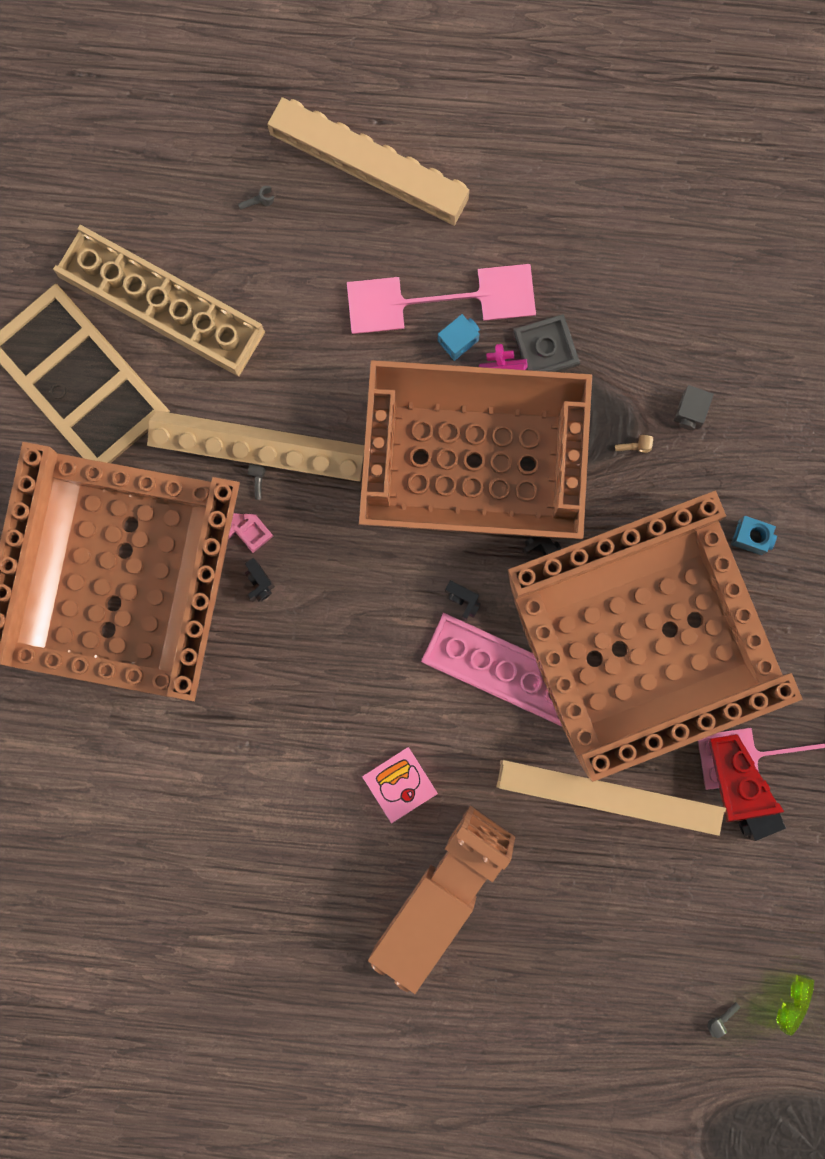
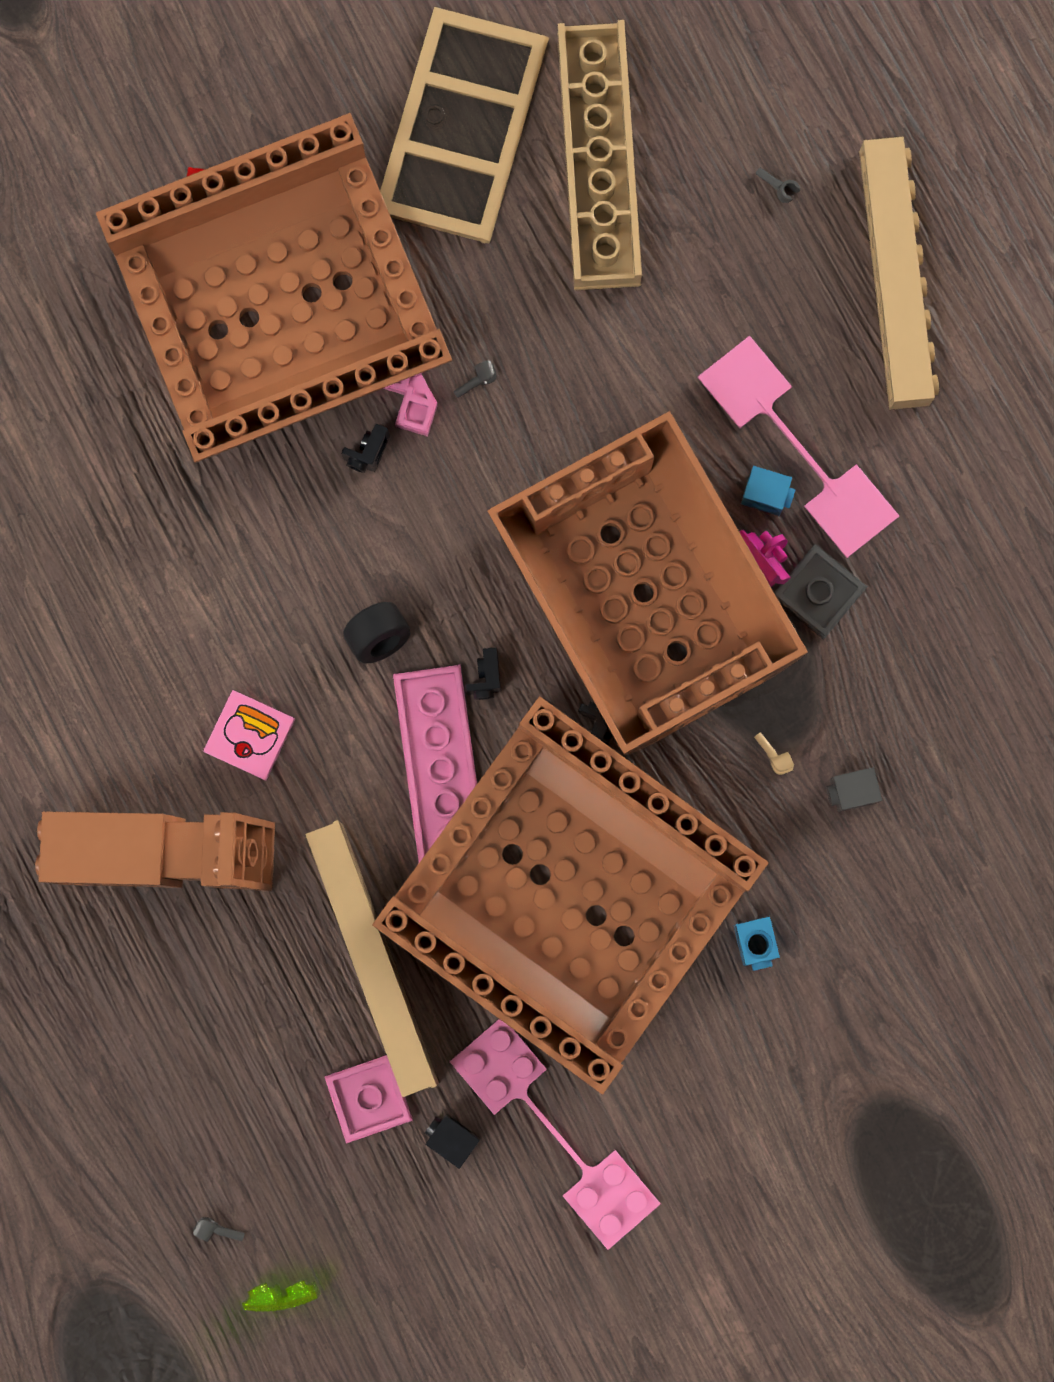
camera: 55 degrees right, 0 degrees up
(256, 445) = (507, 351): tan brick -> none
(387, 653) = (376, 632): none -> black tyre
(696, 860) = (367, 1099): none -> bright pink tile
(740, 783) = (476, 1090): red wing -> none

